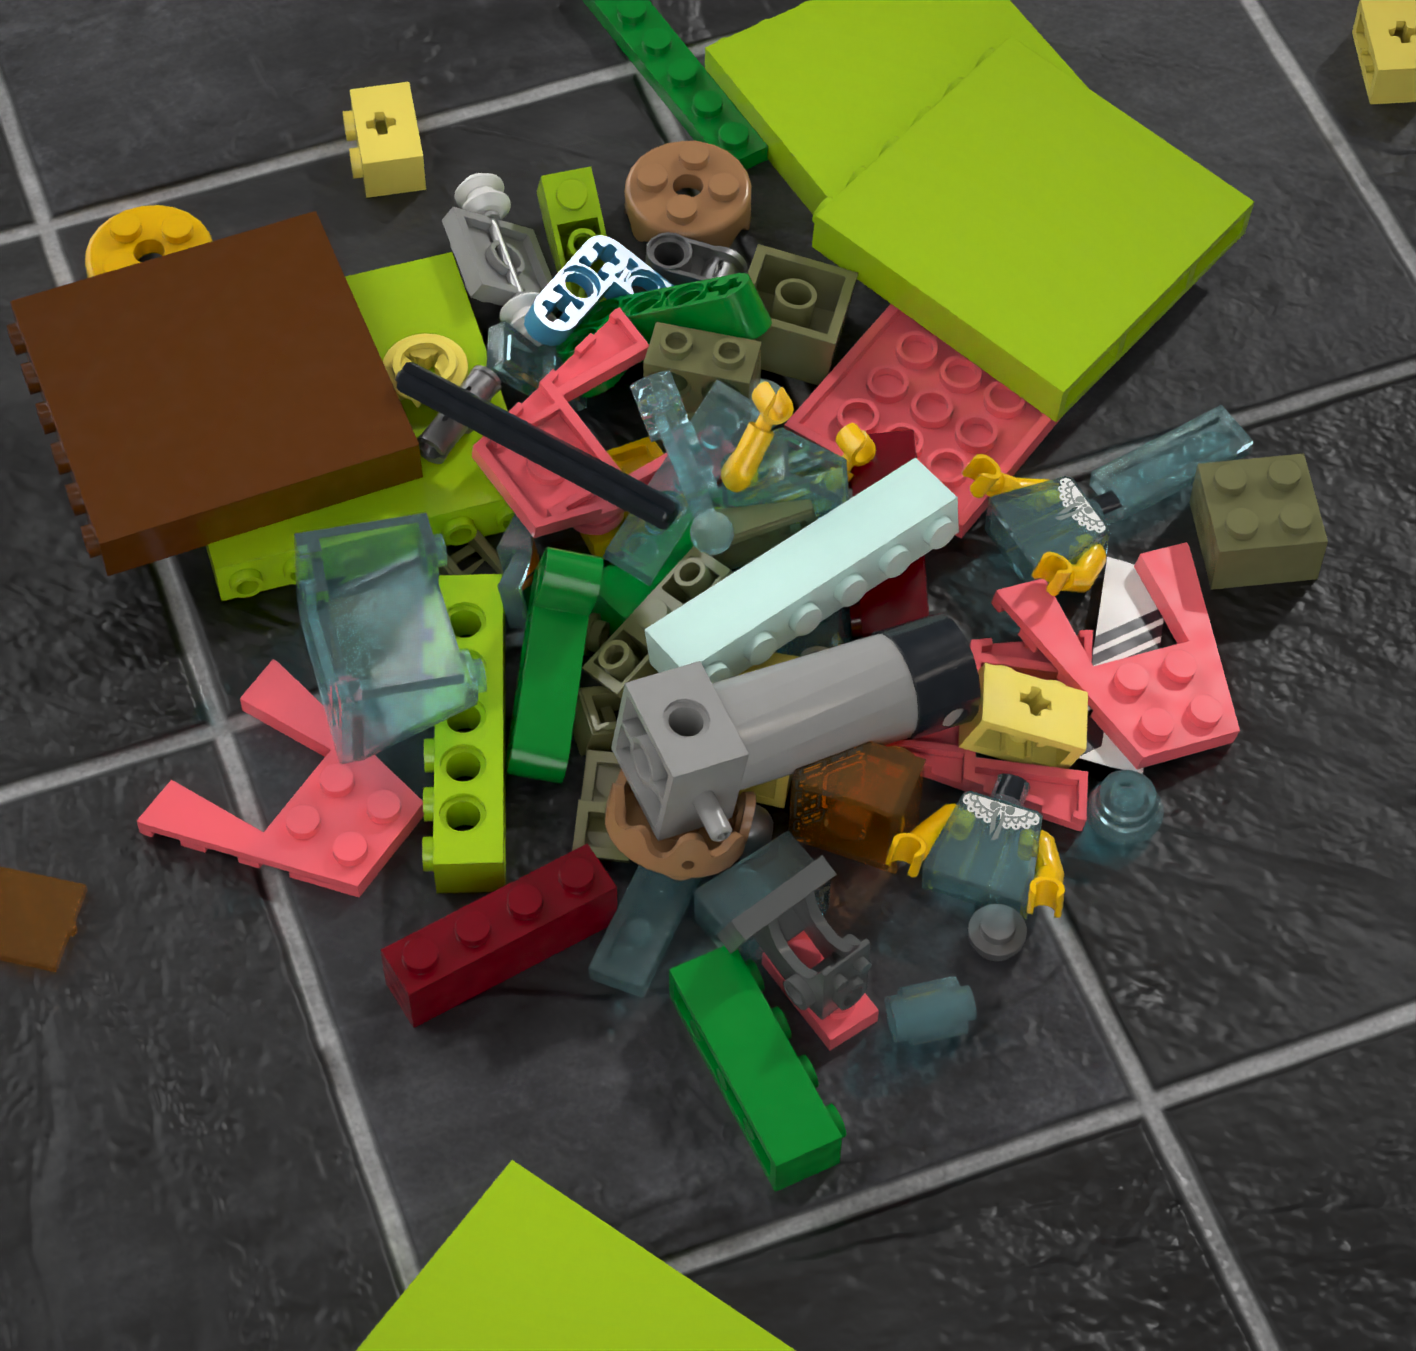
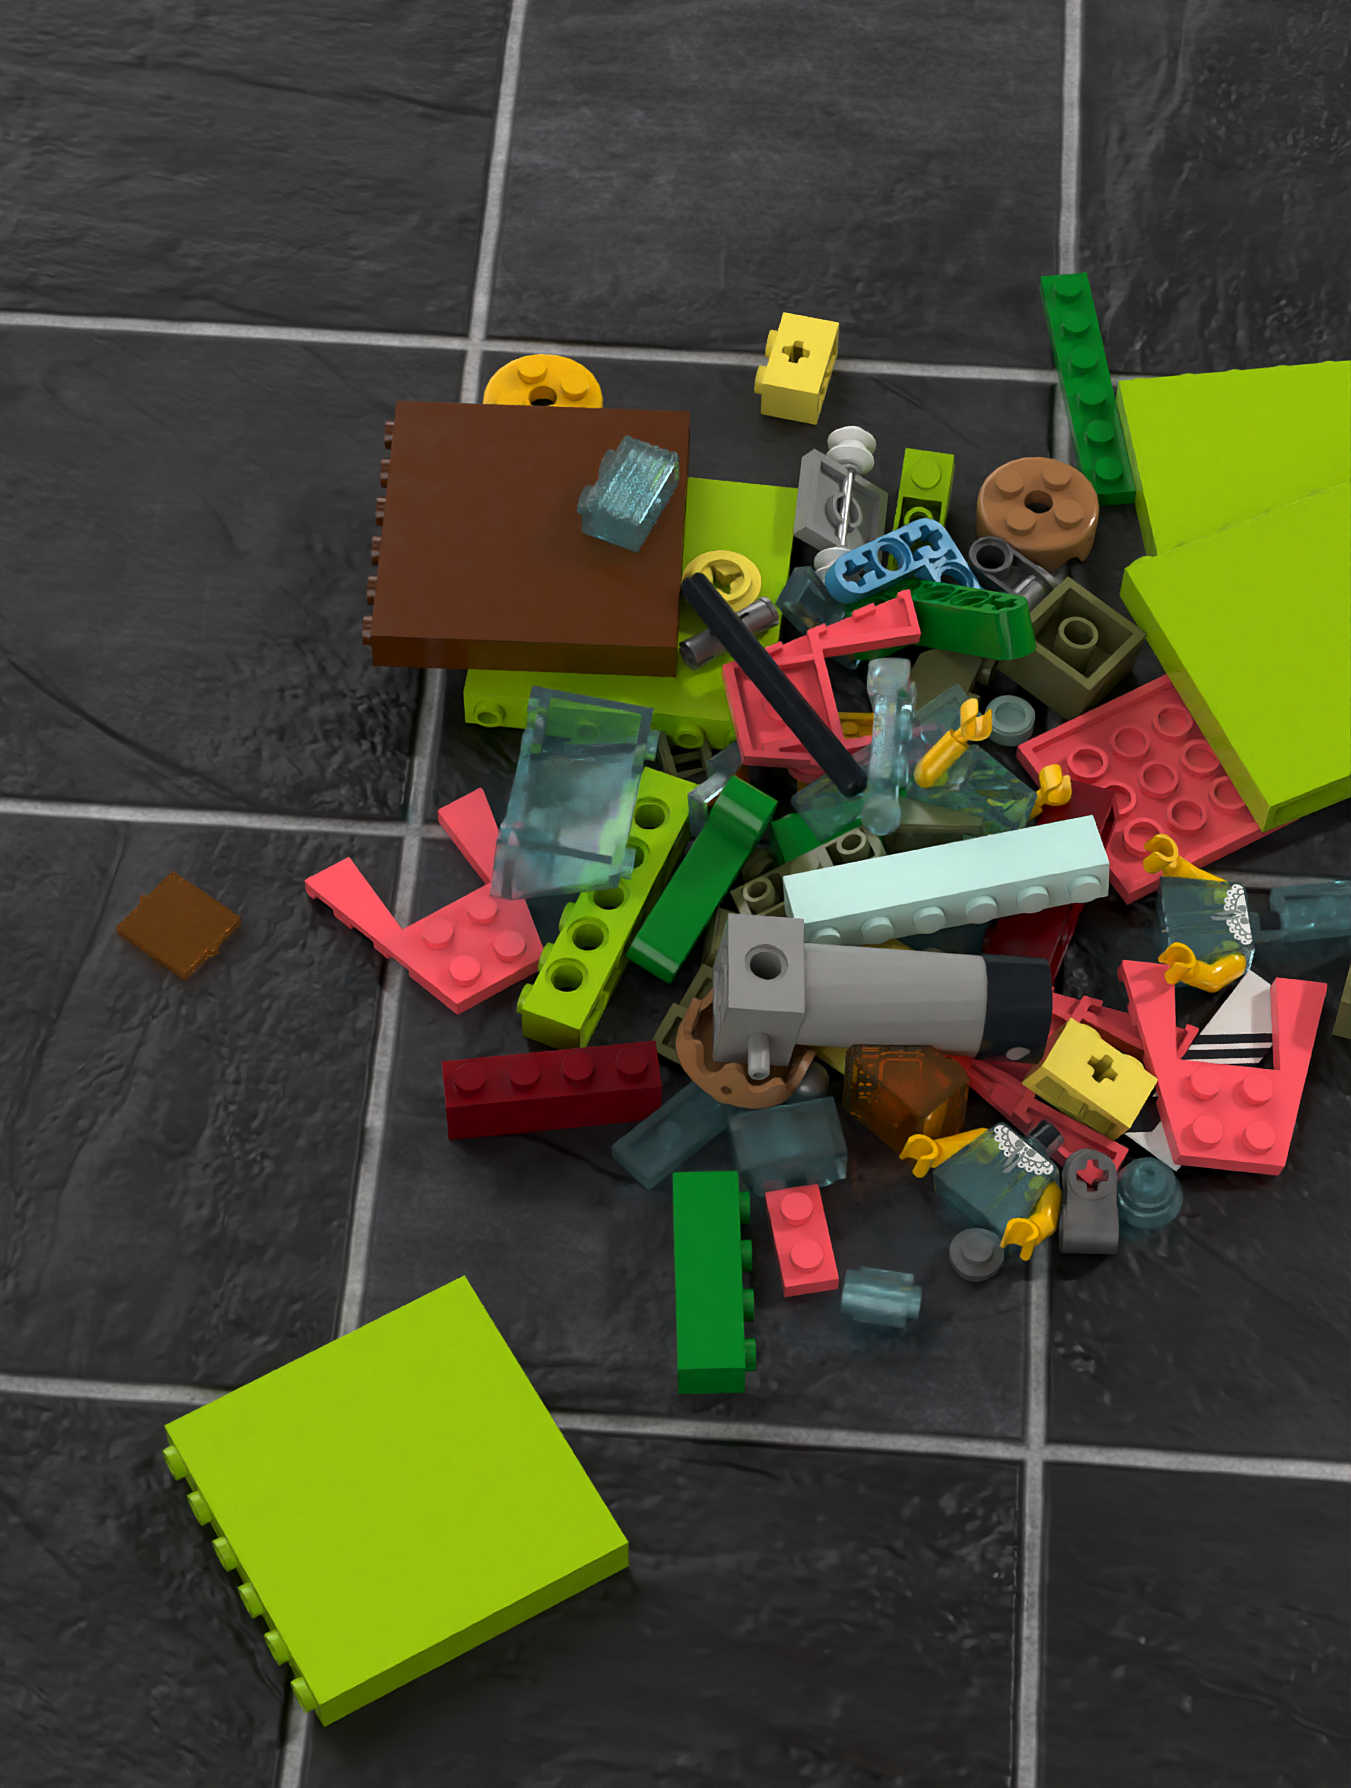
camera: 25 degrees right, 0 degrees up
(300, 309) = (629, 493): none -> clear light blue brick
(701, 358) = (947, 656): olive brick -> none
(781, 916) = (787, 1165): dark grey tile -> none
(1087, 841) = (1089, 1215): none -> flat silver piece

